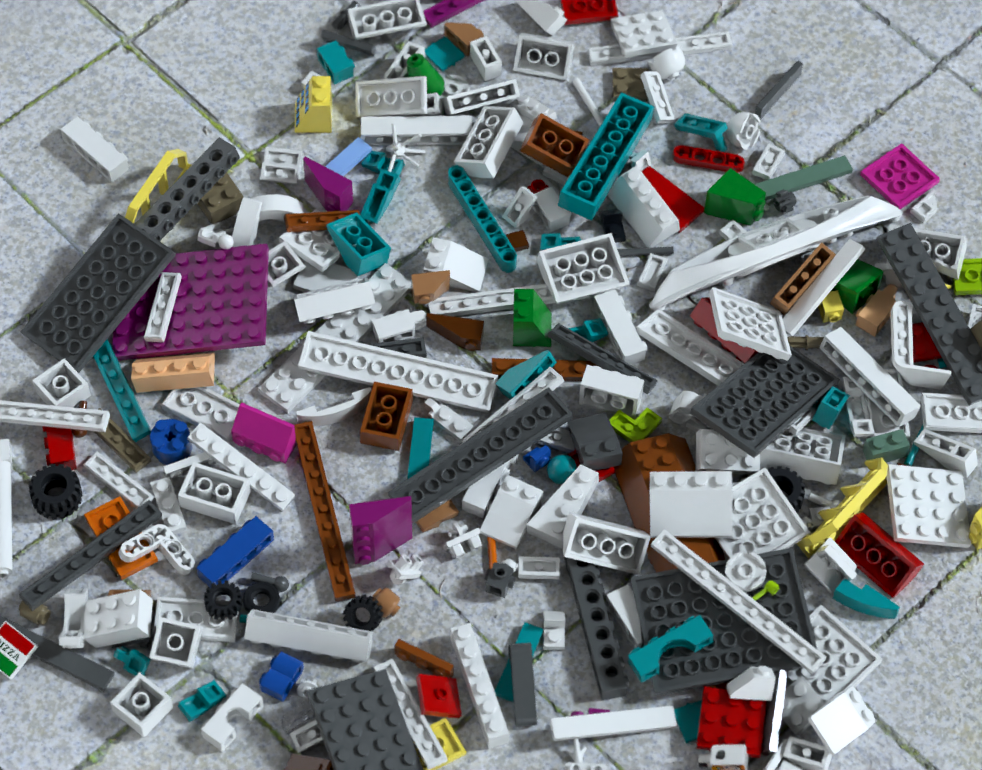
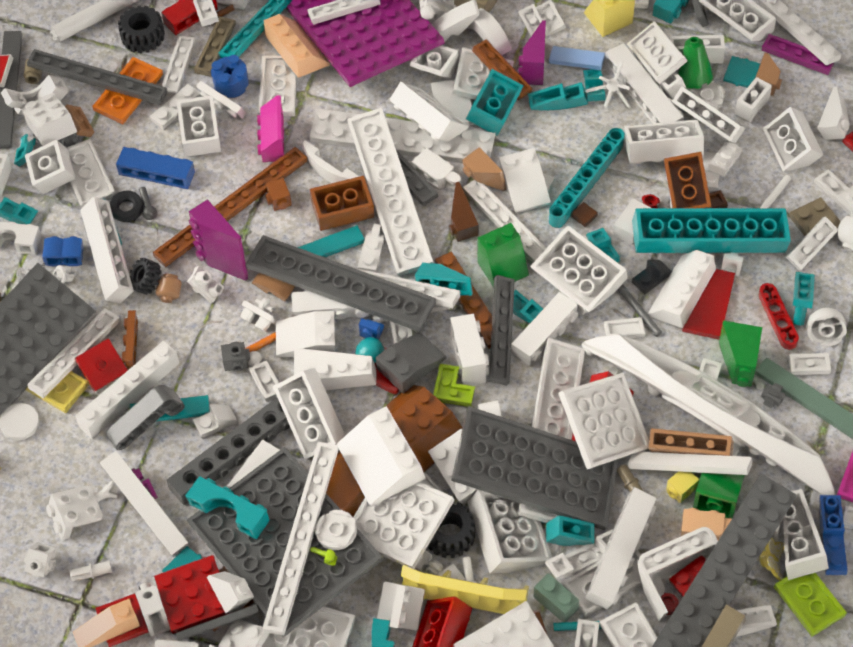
camera: 65 degrees right, 0 degrees up
(162, 543) = (135, 115): white beam -> none
(223, 611) = (105, 170): black tyre -> none
(241, 466) = (232, 131): white plate -> none
(339, 464) = (278, 194): none -> dark orange brick
(520, 207) = (616, 199): white slope -> none
(926, 221) = (833, 533): none -> blue slope

